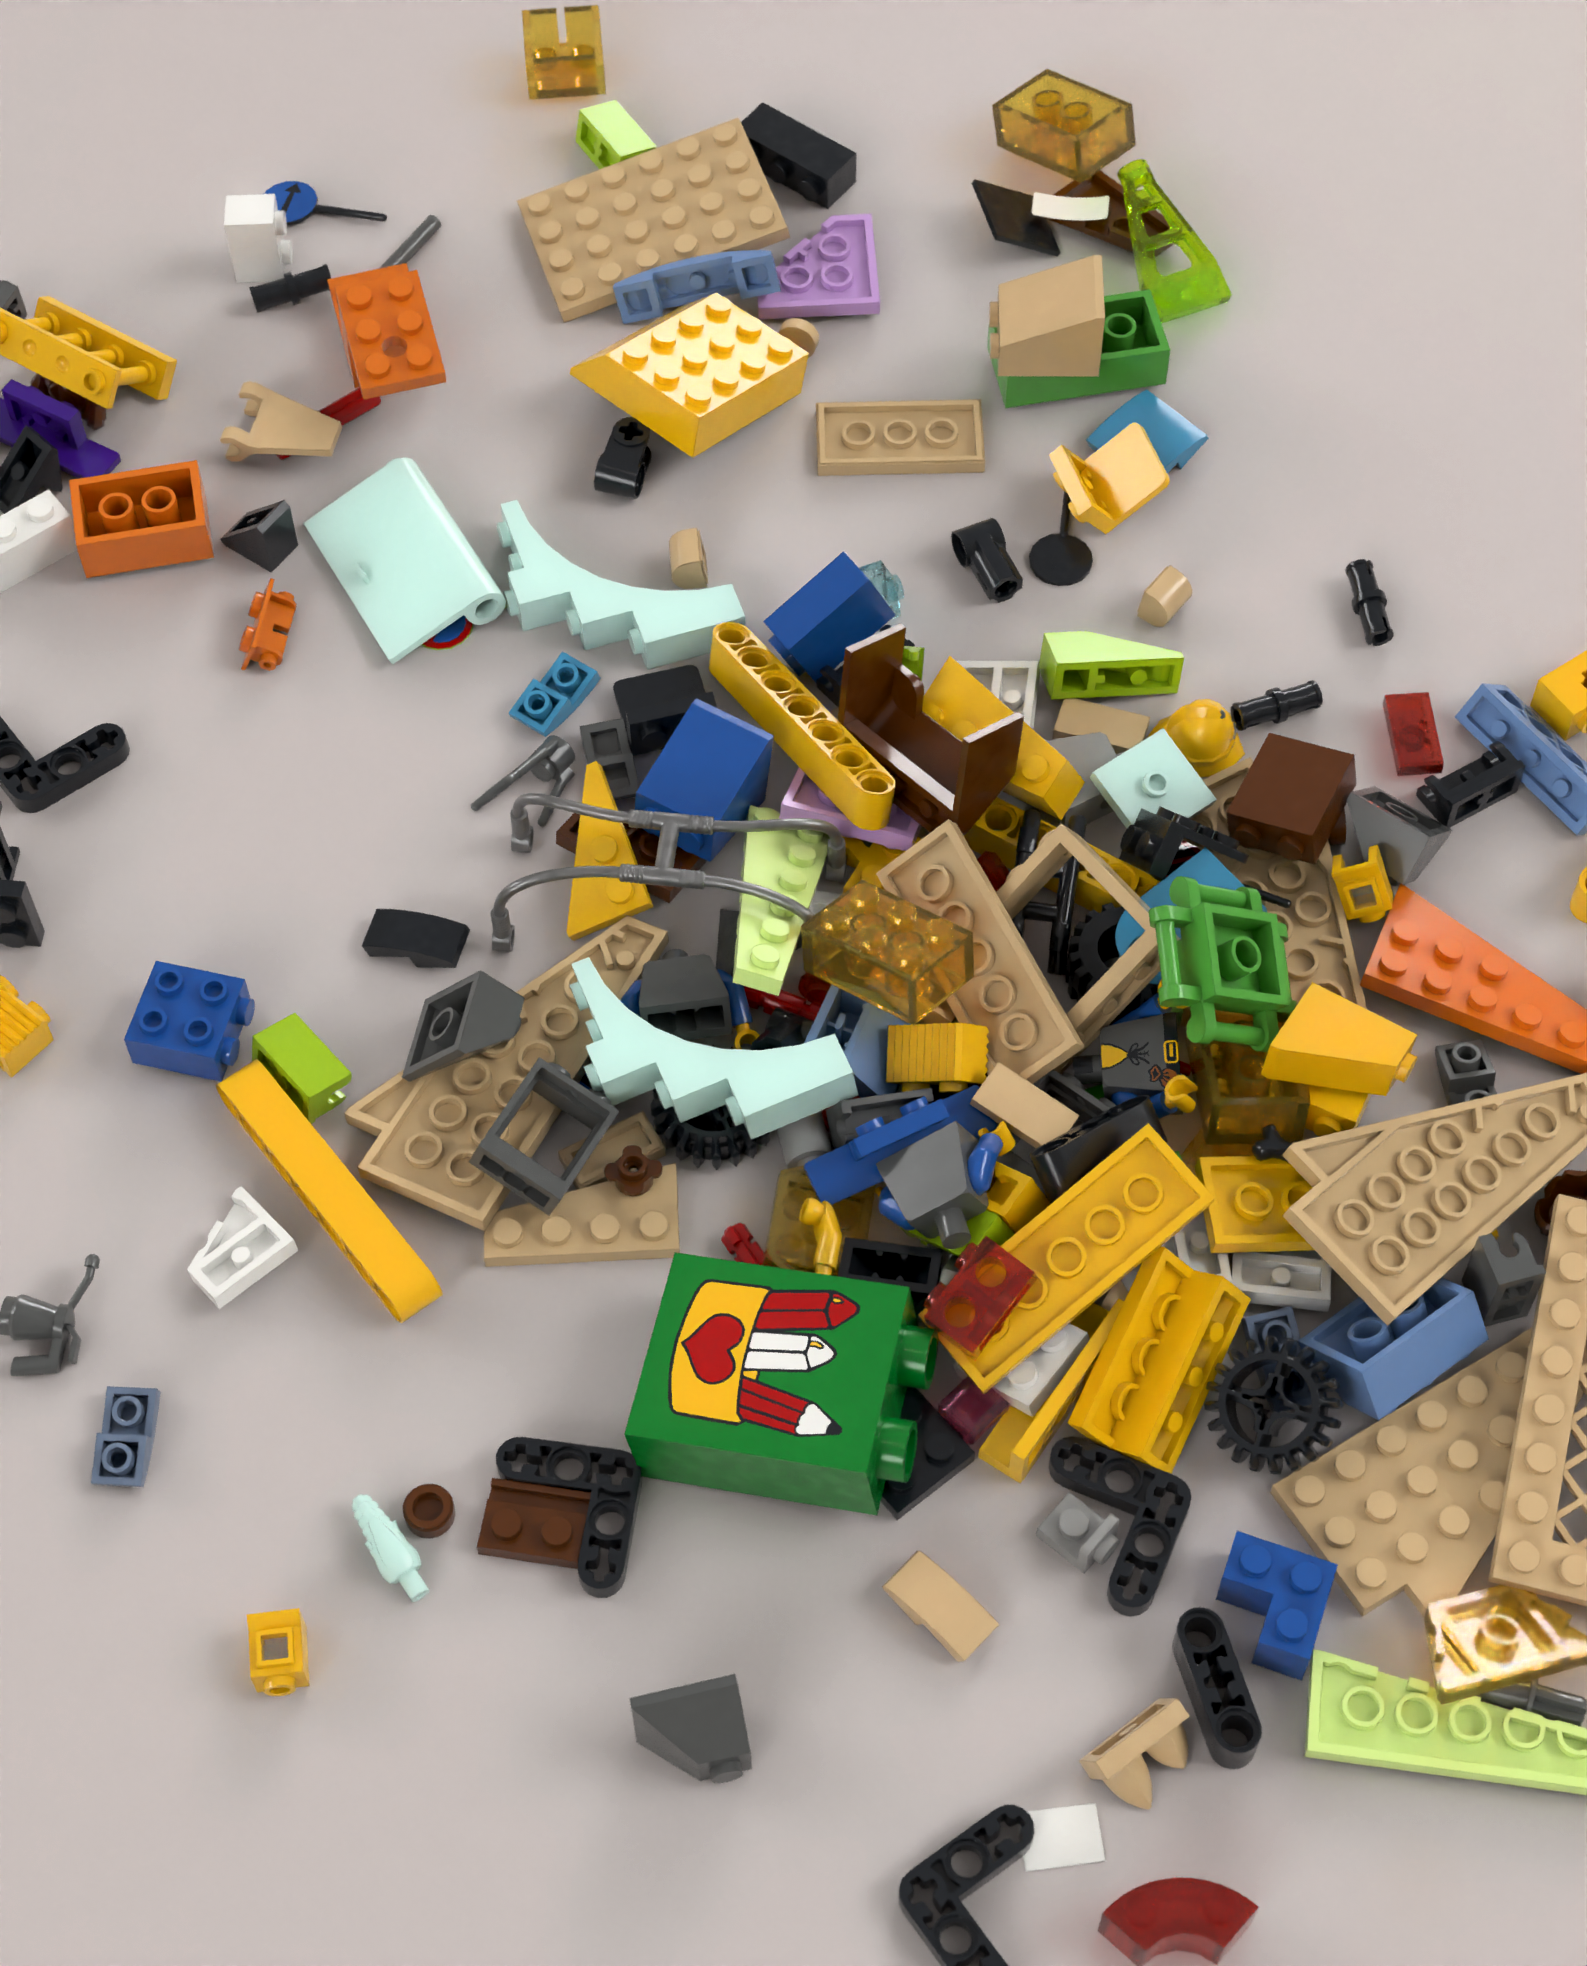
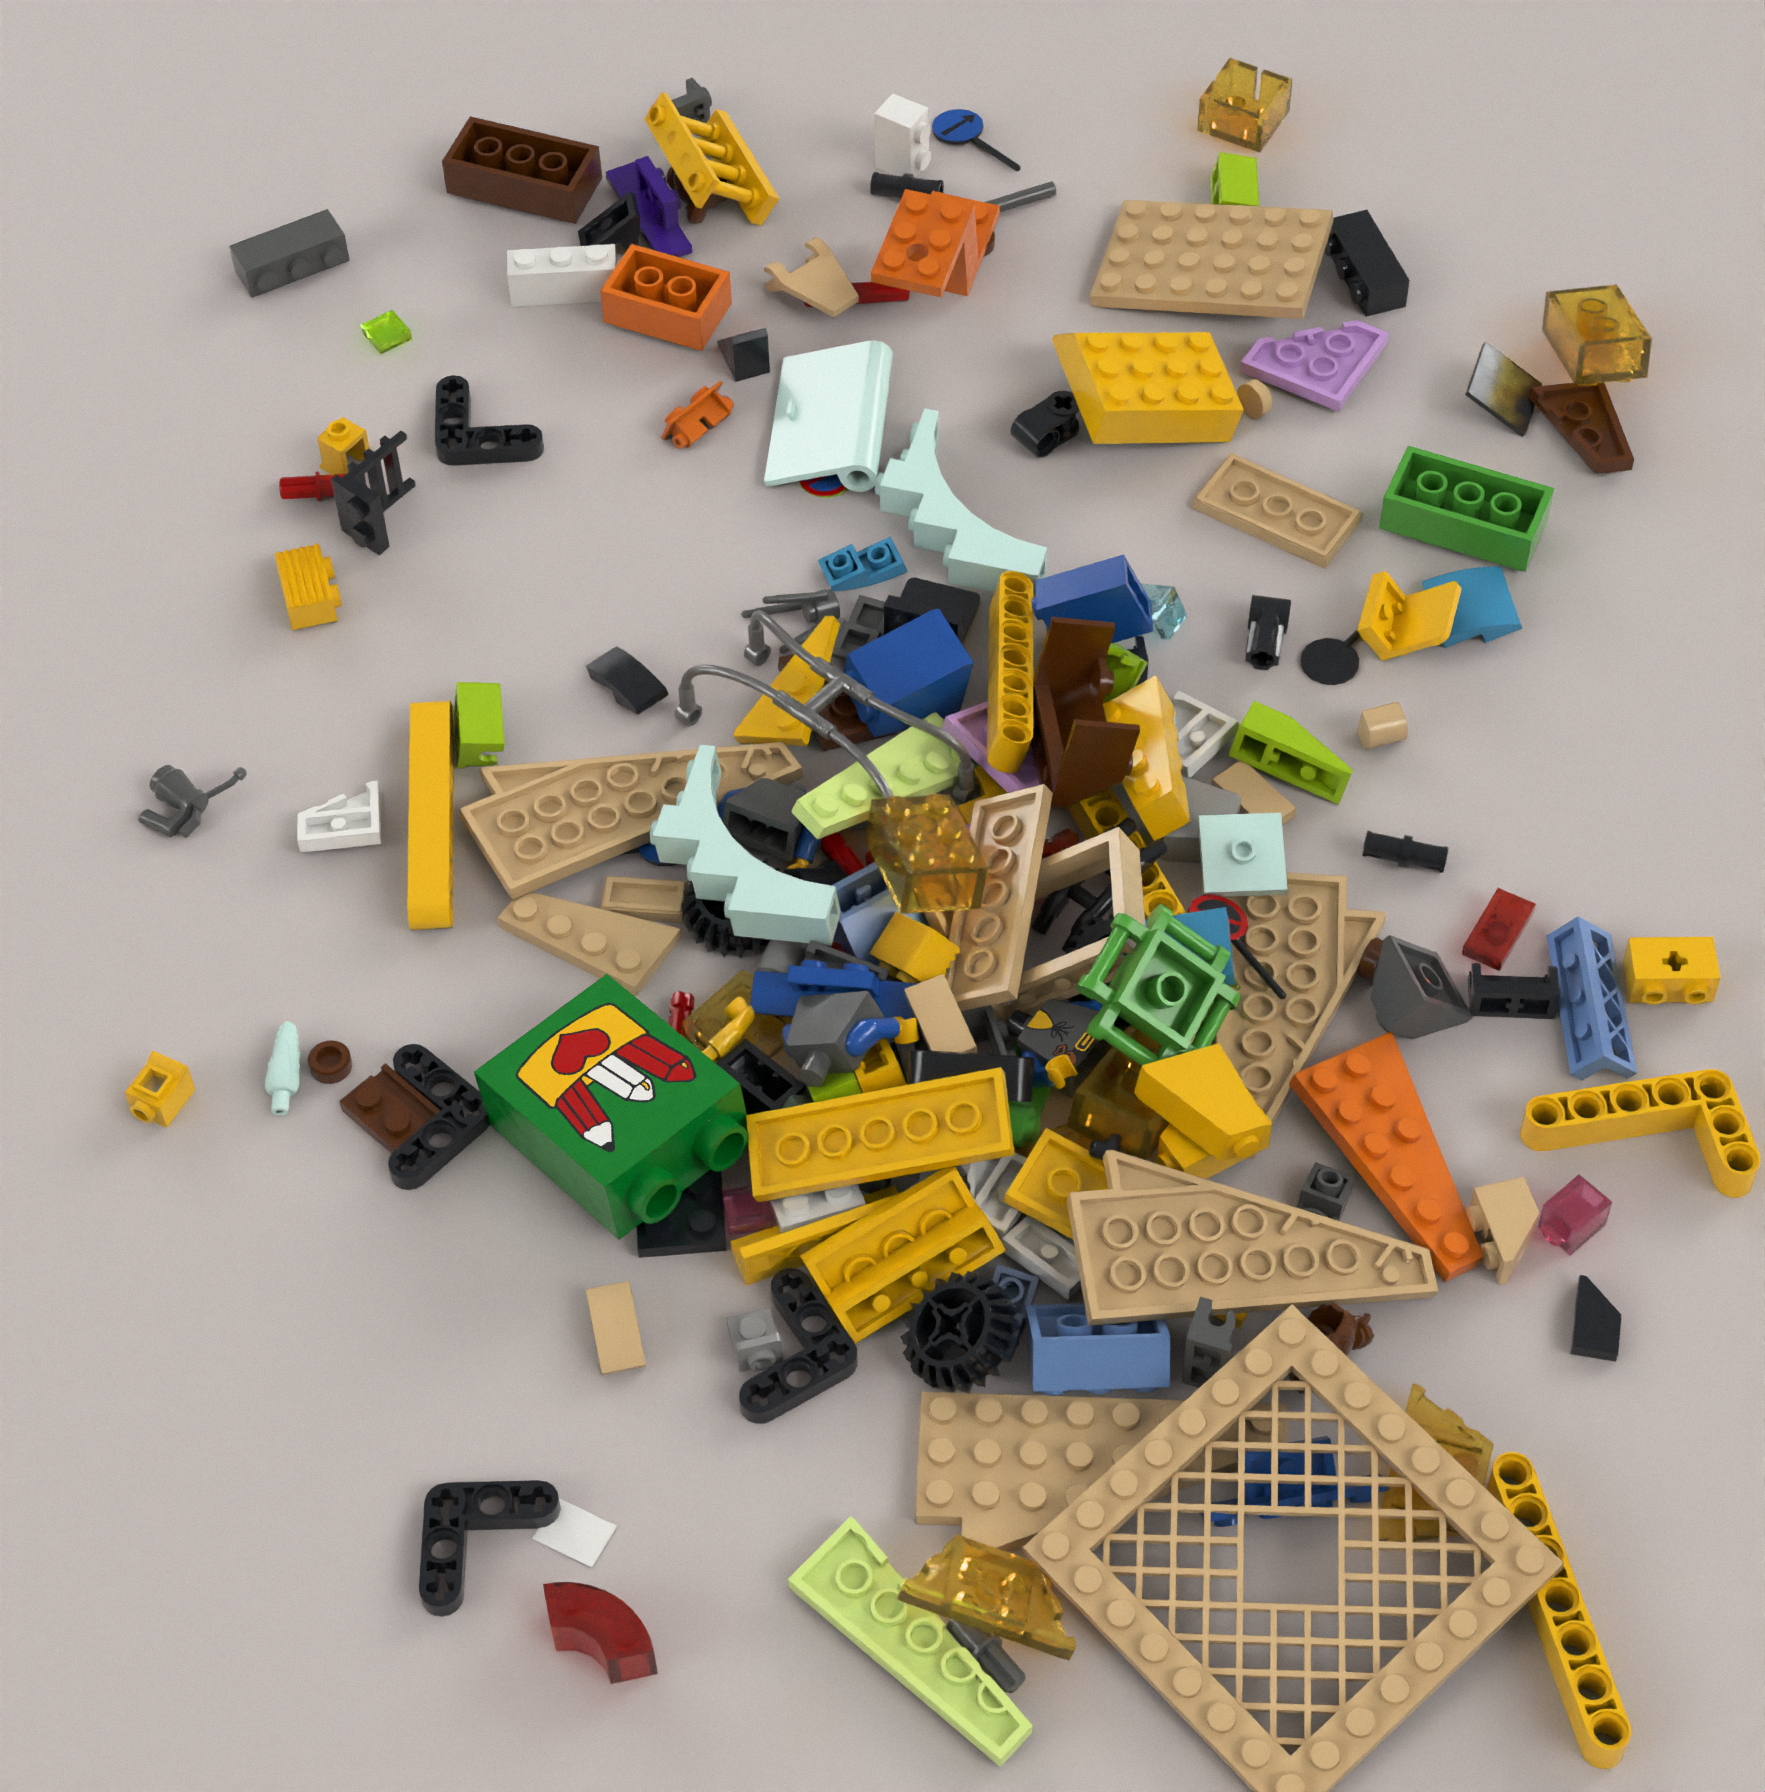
camera: 35 degrees right, 5 degrees down
(126, 1436) = (179, 902): sand blue slope -> none
(189, 1021) = (427, 651): blue brick -> none
(462, 1024) = (602, 751): dark grey slope -> none
(519, 1171) = (554, 866): dark grey window -> none
(633, 1182) = (641, 915): reddish brown plate -> none
(688, 559) = (1037, 518): tan brick -> none
(690, 279) = (1224, 320): medium blue slope -> none
(696, 1728) = (382, 1297): dark grey slope -> none
(990, 1304) = (791, 1133): clear red brick -> none
(1050, 321) = (1440, 471): tan slope -> none
(1069, 207) = (1552, 400): white sticker -> none
(1120, 1757) = (652, 1504): tan tile -> none
(1157, 837) = (1223, 884): black bracket -> none
(1182, 291) = (1599, 508): clear neon green plate -> none
(1204, 736) = (1321, 843): yellow piece -> none
(1226, 1673) = (741, 1515): black beam -> none
(1285, 1589) = (863, 1468): blue brick -> none
(1291, 798) = (1341, 917): reddish brown brick -> none
(1363, 887) = (1351, 1013): yellow window -> none
(1369, 602) = (1548, 814): black pin -> none

